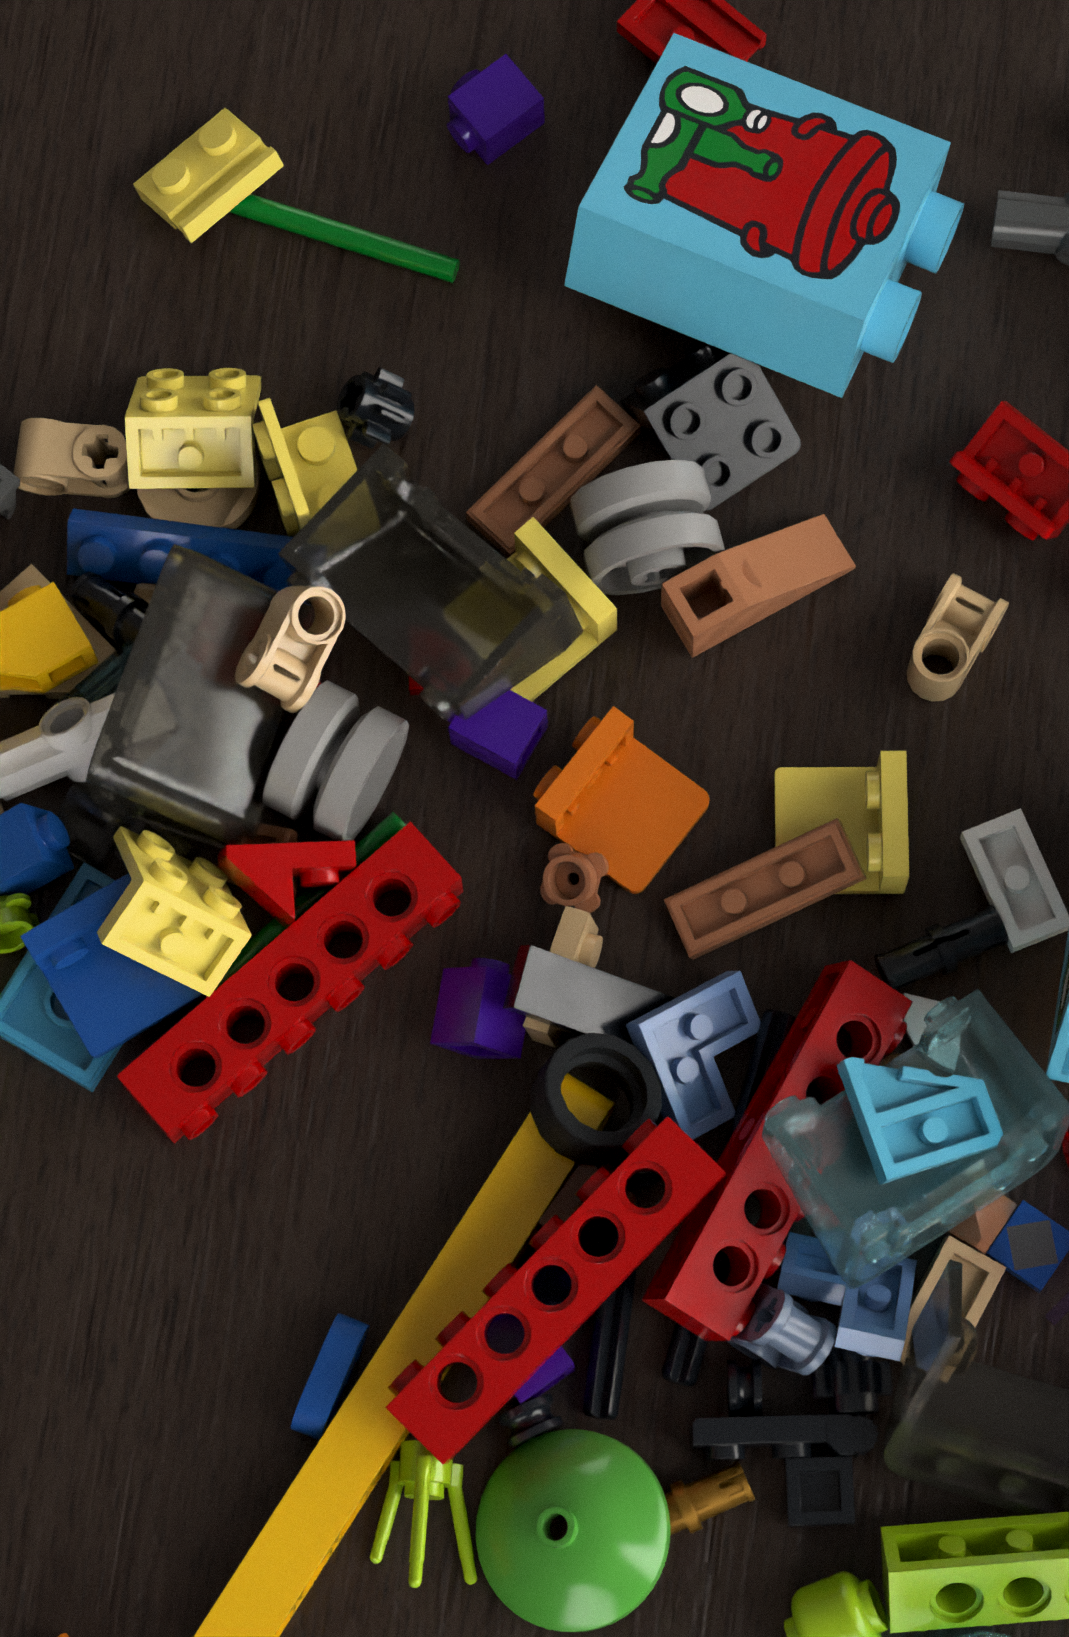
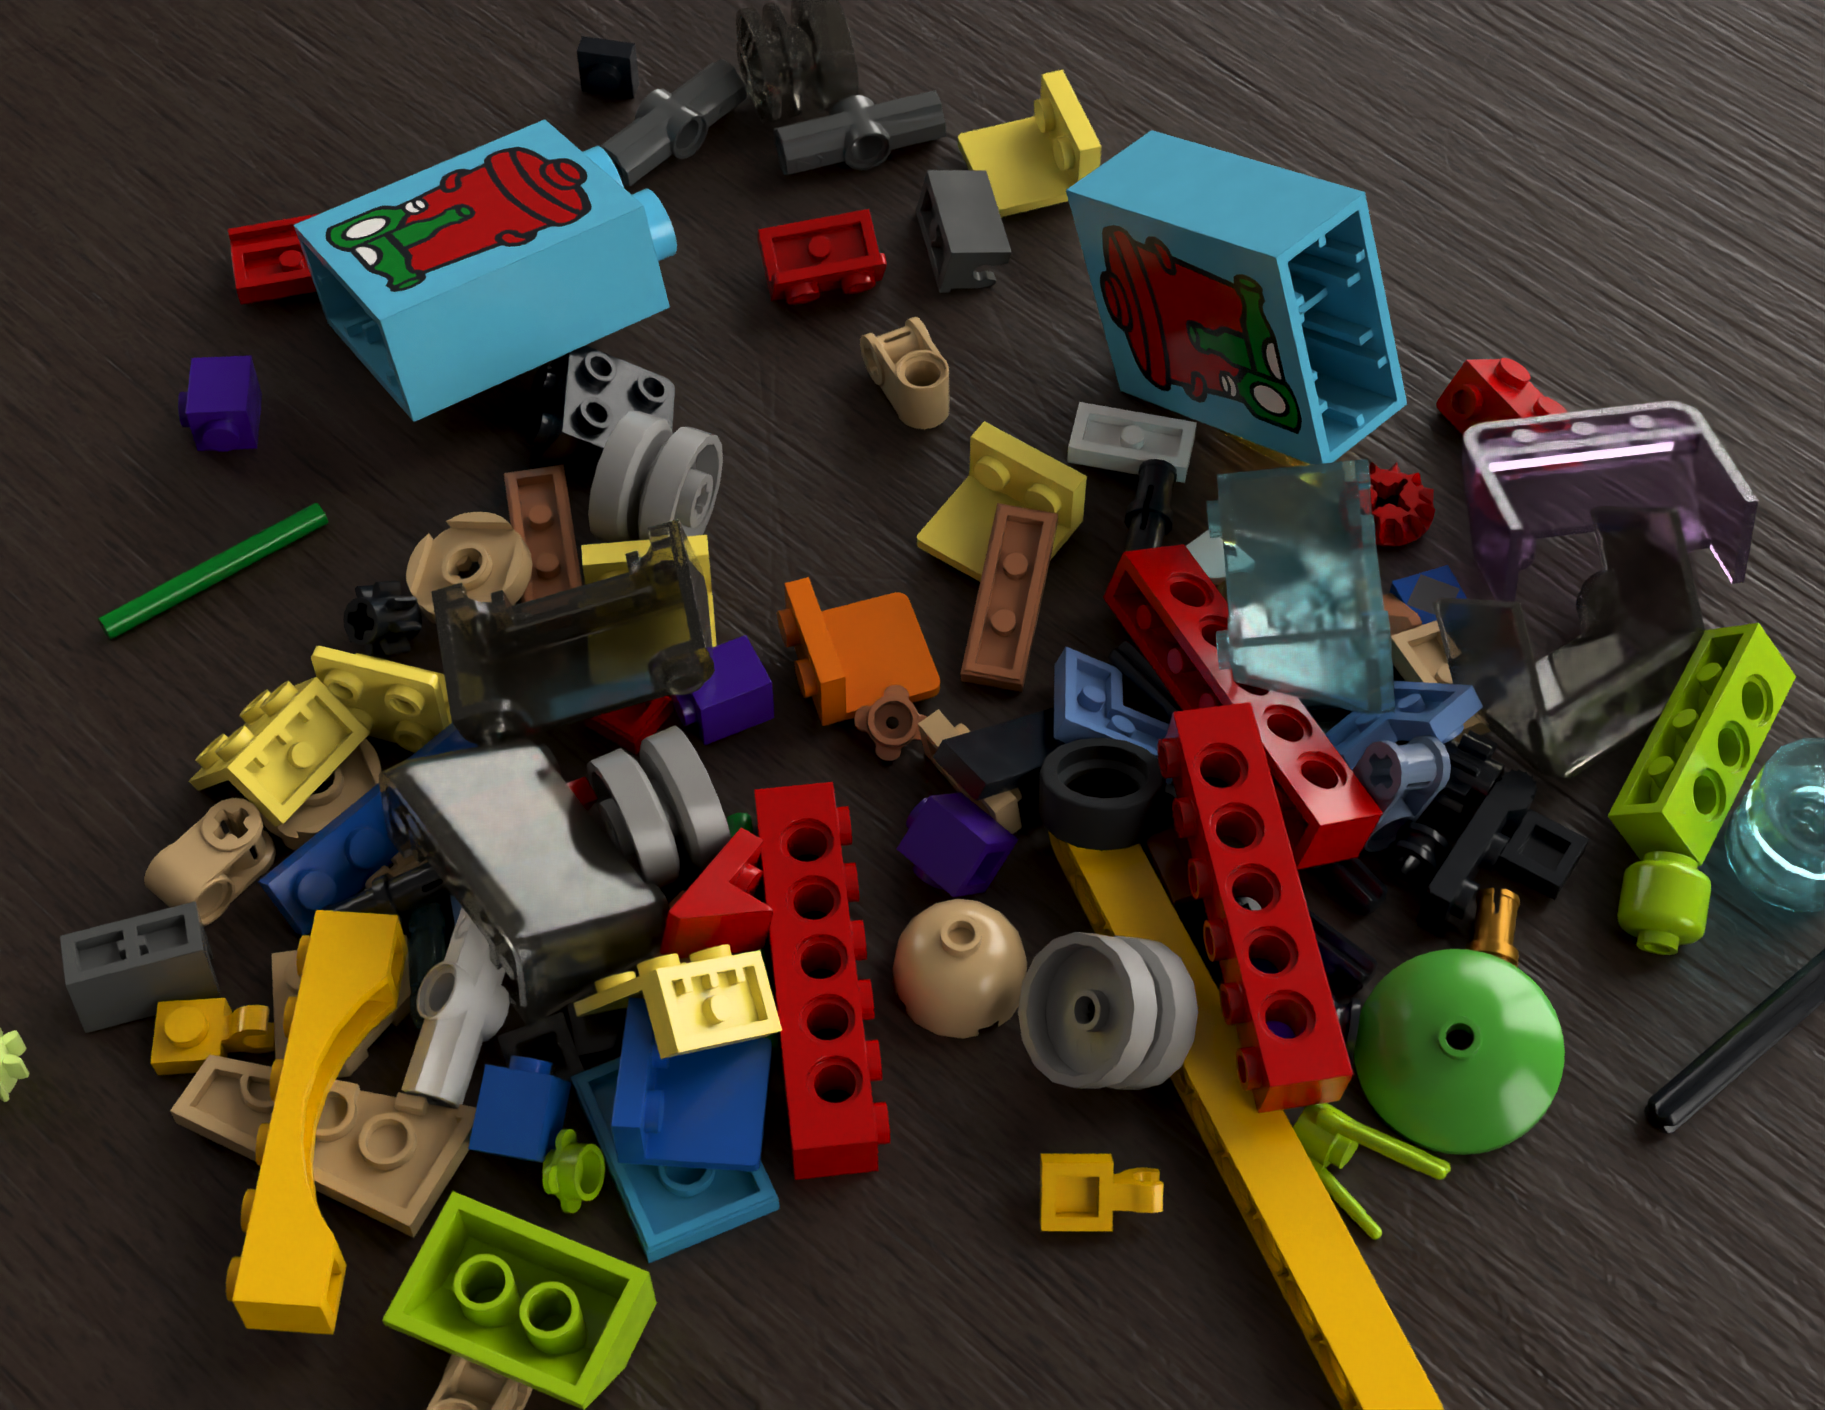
camera: 60 degrees left, 20 degrees down
(208, 175) = (74, 622): light yellow plate -> none
(247, 1319) = (1083, 1192): none -> yellow plate
(284, 655) = (538, 744): tan piece -> none
(330, 1376) = (1190, 1159): blue beam -> none
(382, 1089) = (959, 968): none -> tan cylinder
(390, 1235) = (1107, 1011): none -> light grey wheel
(476, 470) = (471, 538): none -> tan plate
(752, 582) = (755, 469): nougat slope -> none
(917, 1118) = (1286, 580): medium azure wing -> none

